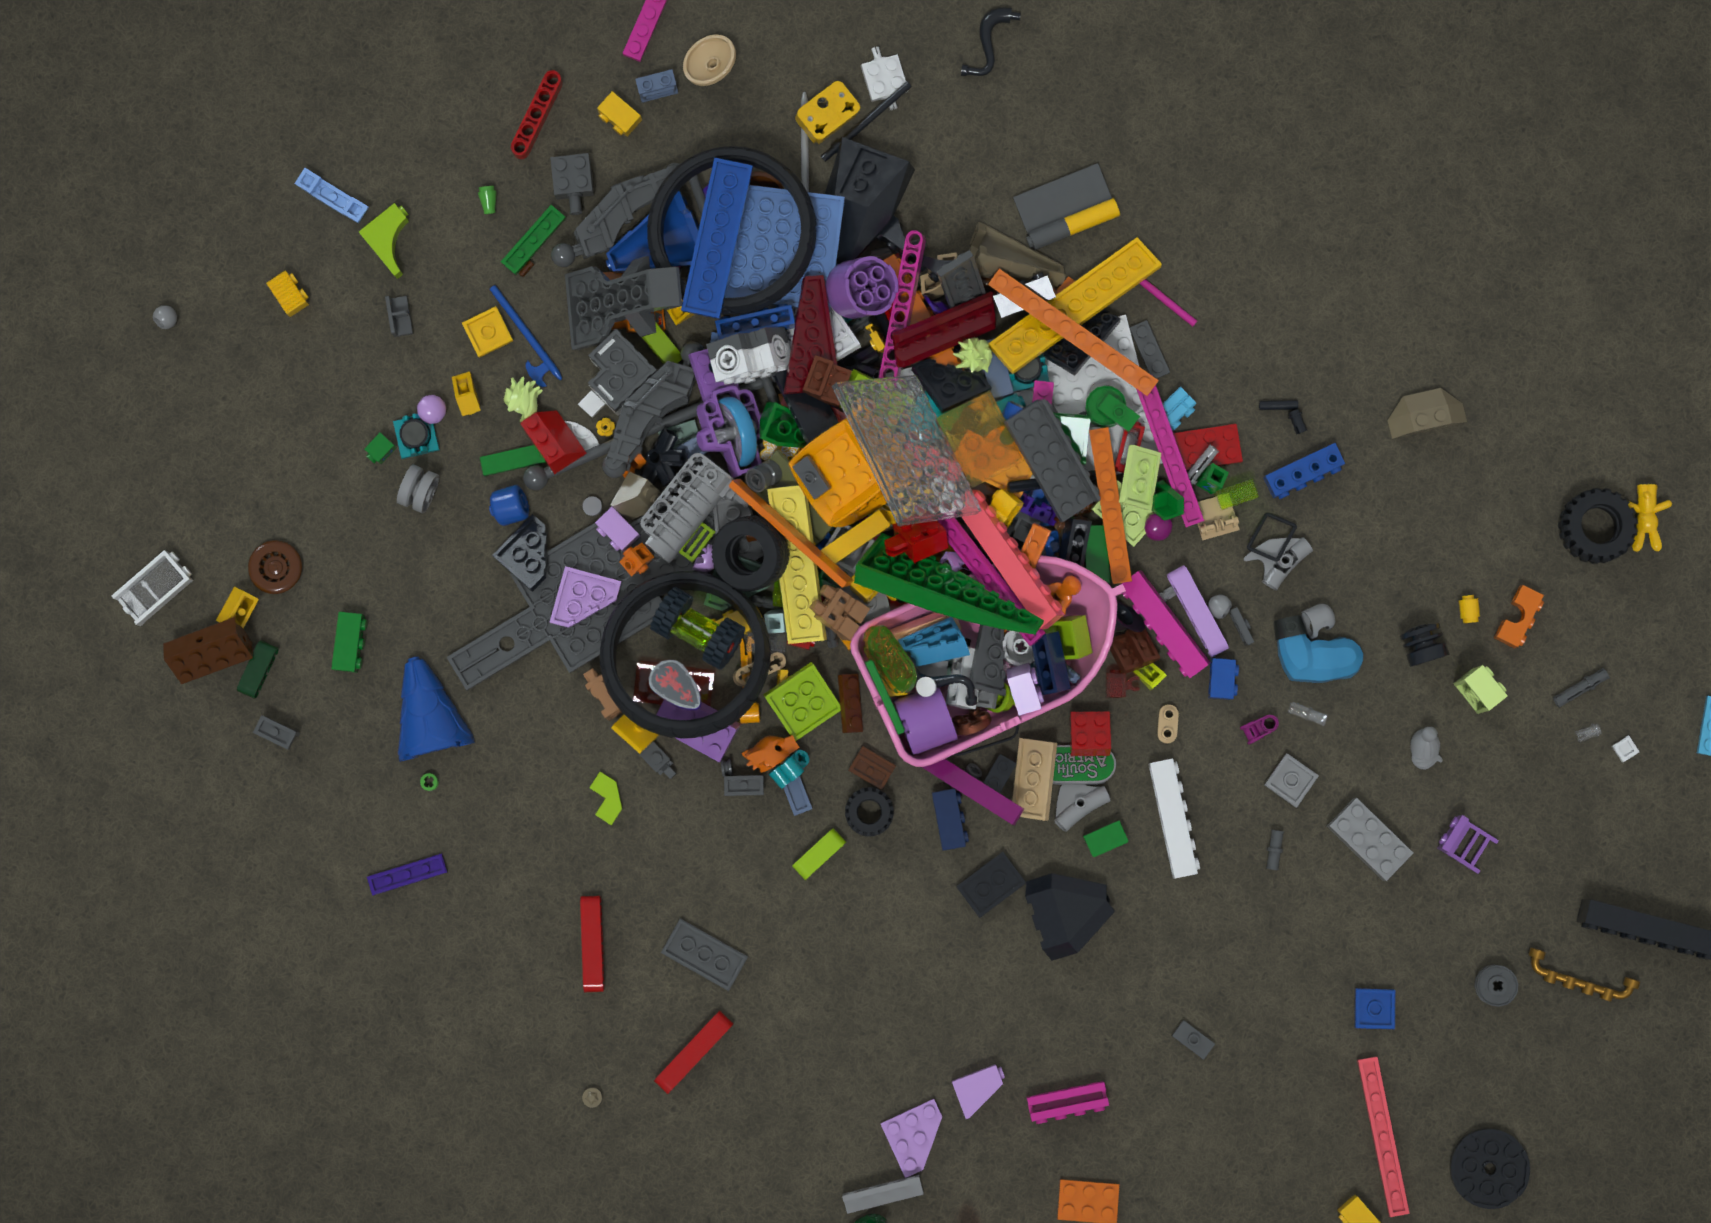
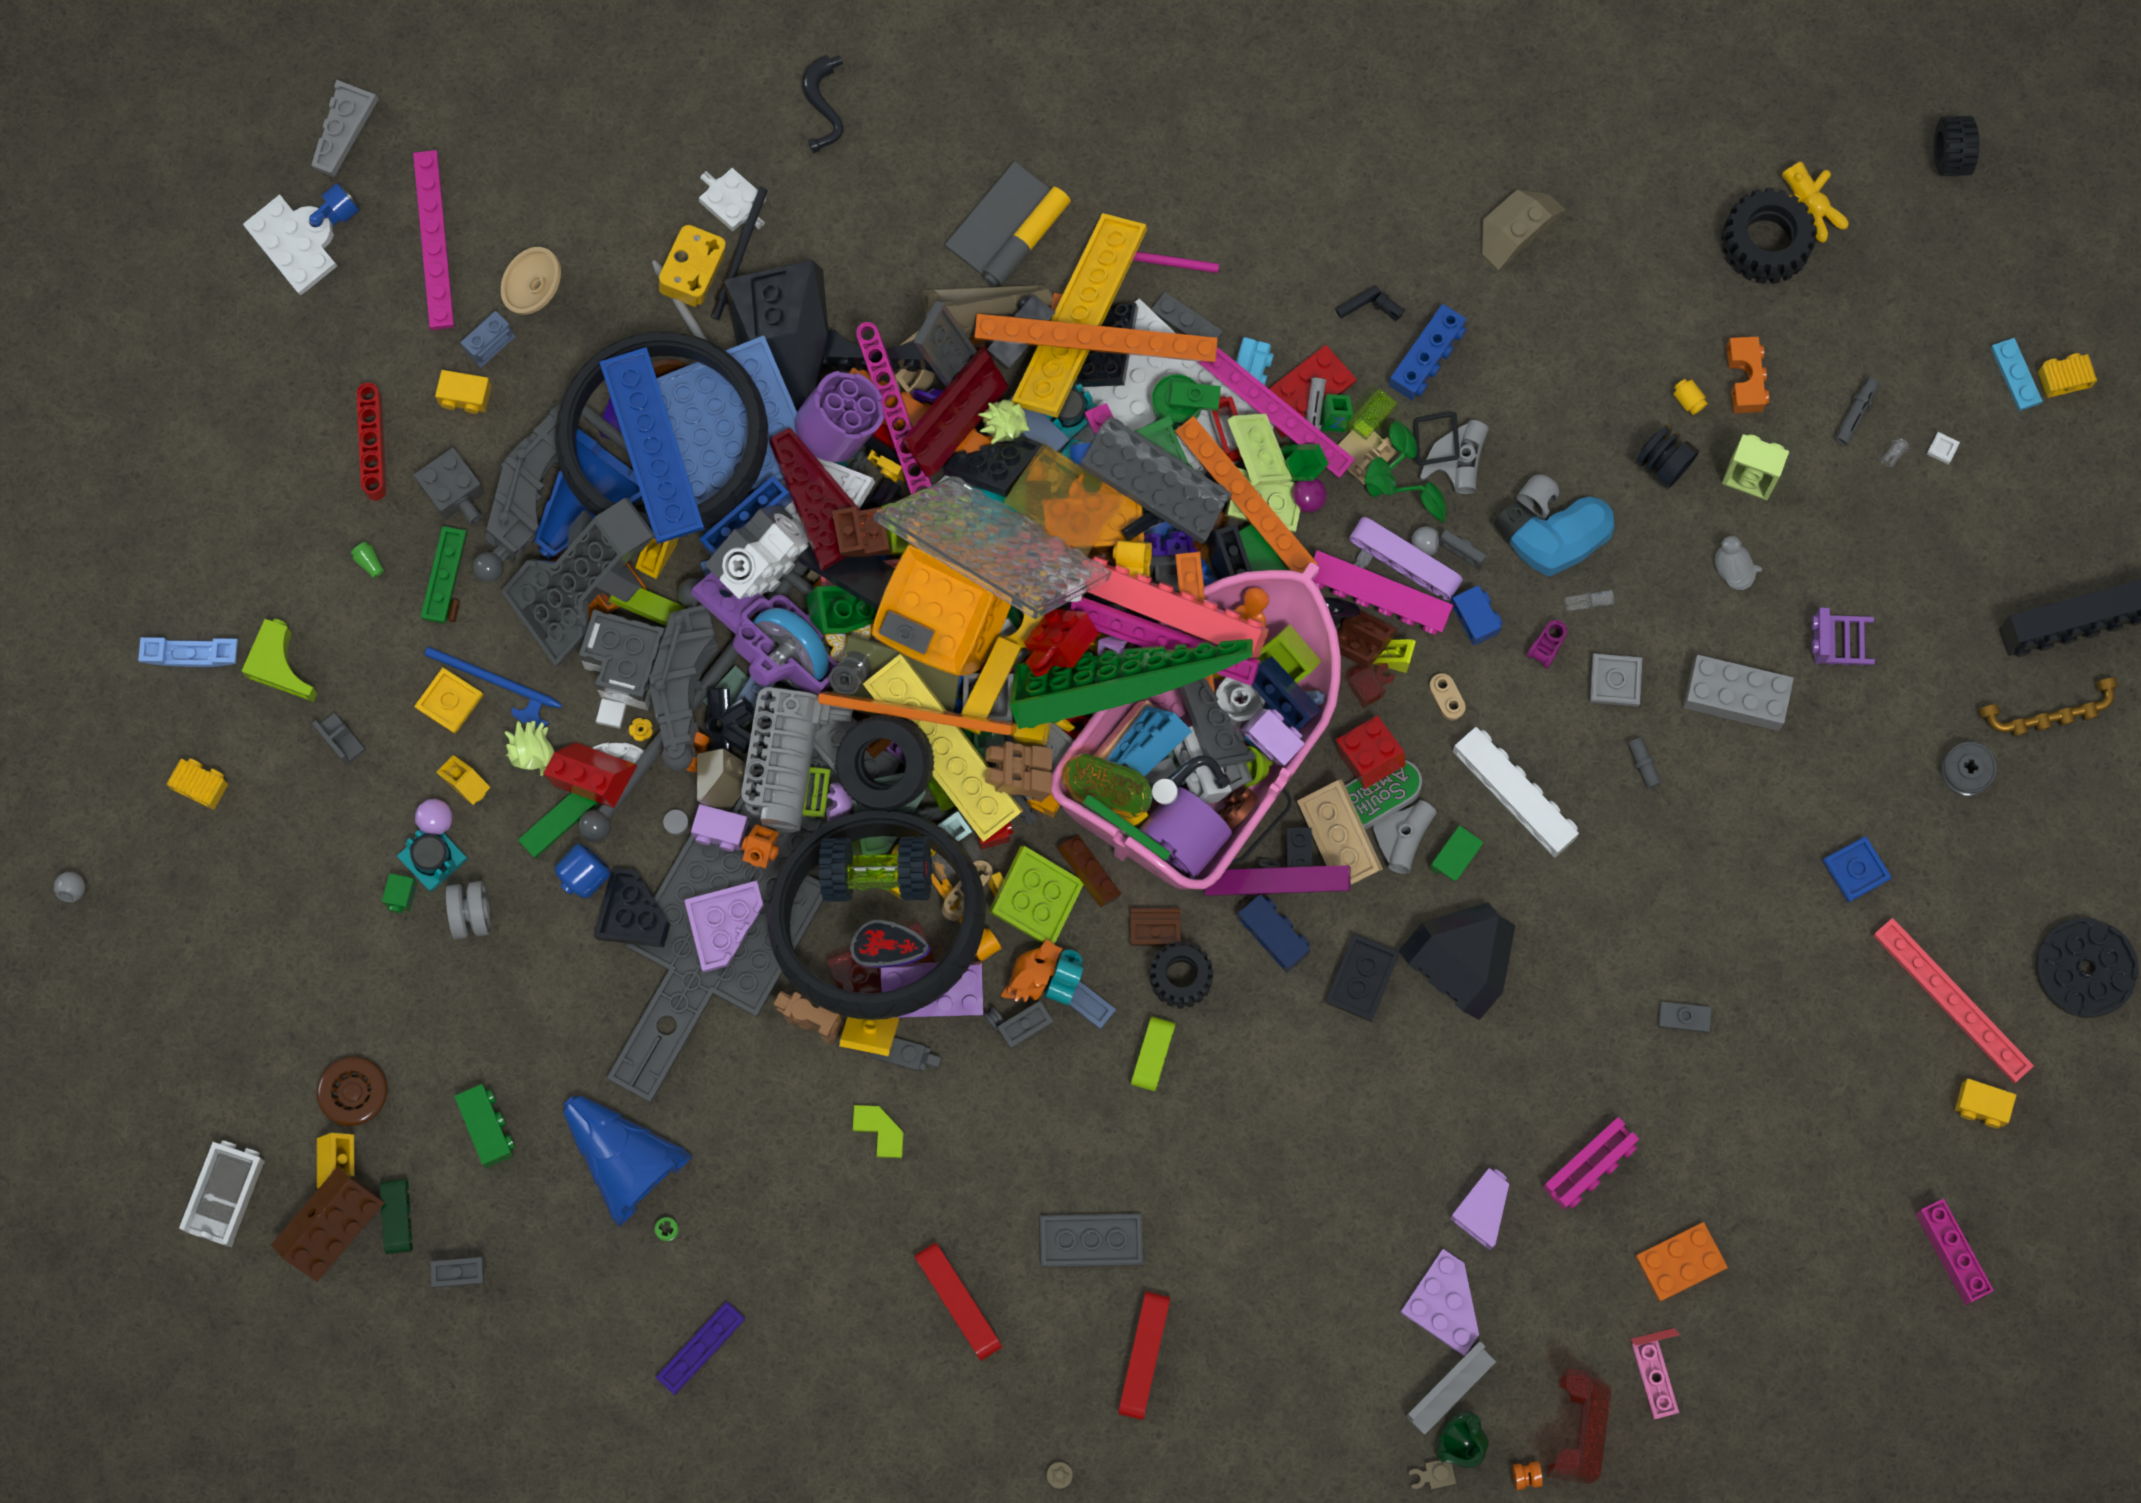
camera: 35 degrees left, 10 degrees down
(1213, 547) = (1381, 481): none -> green plant

